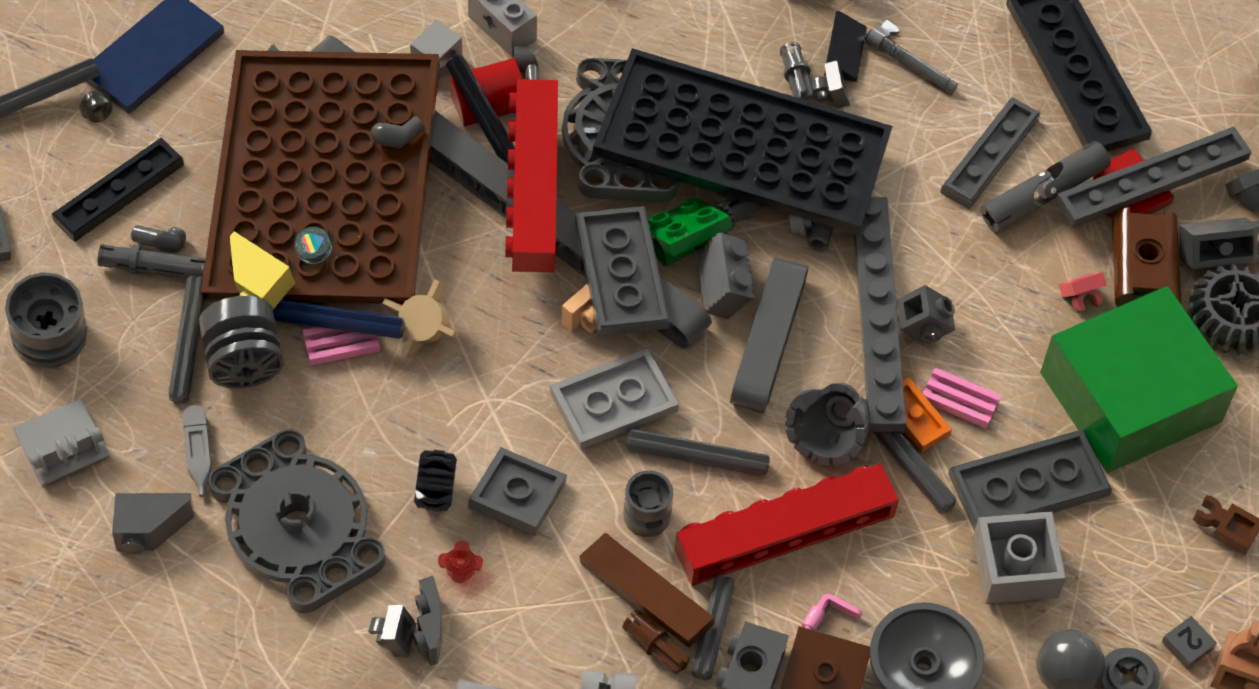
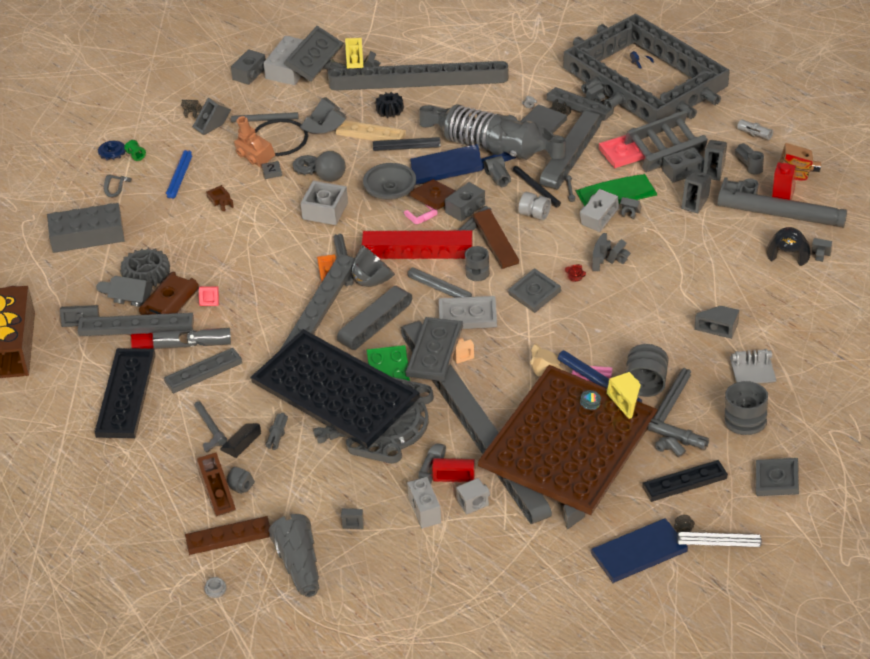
camera: 150 degrees left, 15 degrees down
(197, 446) = (683, 351): light grey piece -> none
(282, 544) = (633, 312): dark grey piece -> none
(395, 135) = (519, 425): dark grey arm -> none
(435, 480) = (573, 294): black gear -> none
(480, 106) = (464, 446): black axle -> none
(534, 176) = (455, 397): red brick -> none
(656, 642) = (503, 222): reddish brown axle -> none
(724, 275) = (383, 334): dark grey brick -> none
(831, 86) = (264, 417): dark grey tile -> none
(926, 314) = (295, 298): dark grey brick -> none
(963, 393) = (304, 273): bright pink tile -> none
(1031, 479) = (294, 238): dark grey tile -> none
(1138, 378) = (218, 245): green container -> none

